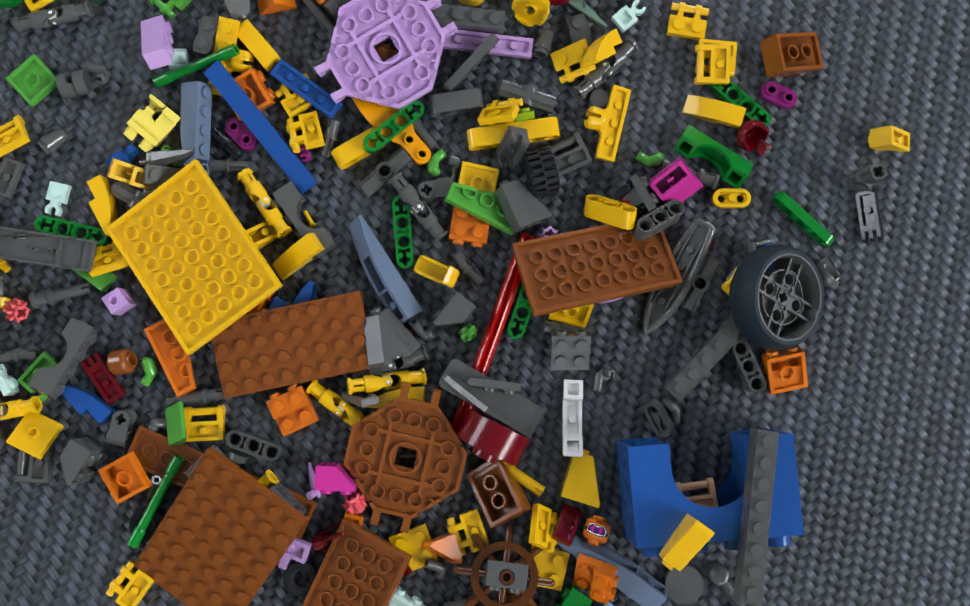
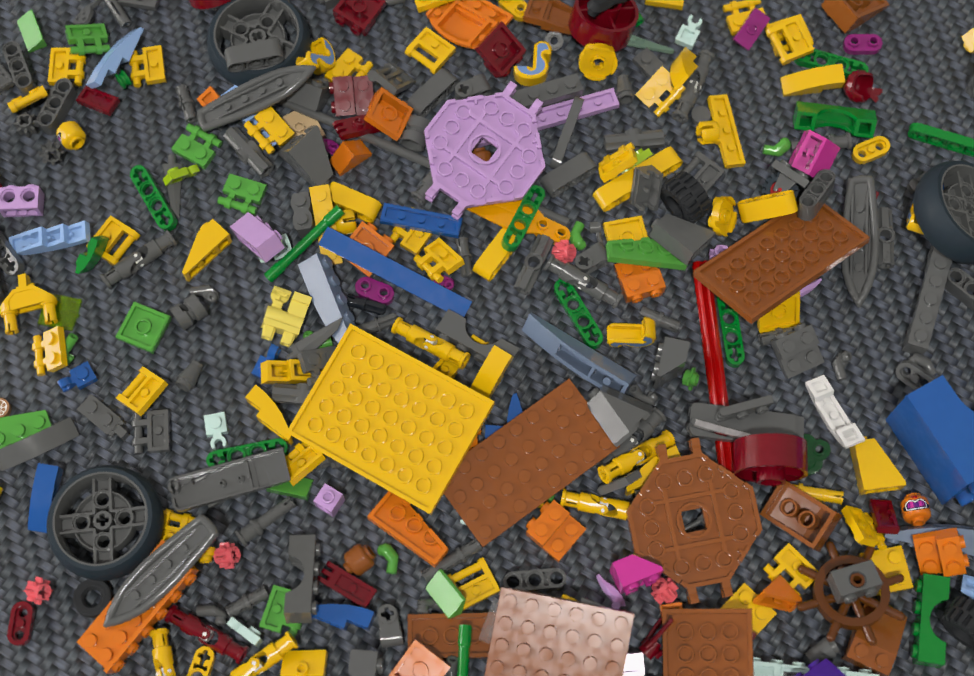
camera: 20 degrees left, 15 degrees down
(113, 31) = (207, 245): none -> yellow slope
(415, 172) = (564, 251): none -> coral gear
(438, 567) = (781, 620): dark grey arm -> none
(534, 448) = (815, 459): none -> dark green plate
(567, 202) = (723, 217): none -> yellow plate
(684, 37) = (751, 29): none -> magenta plate

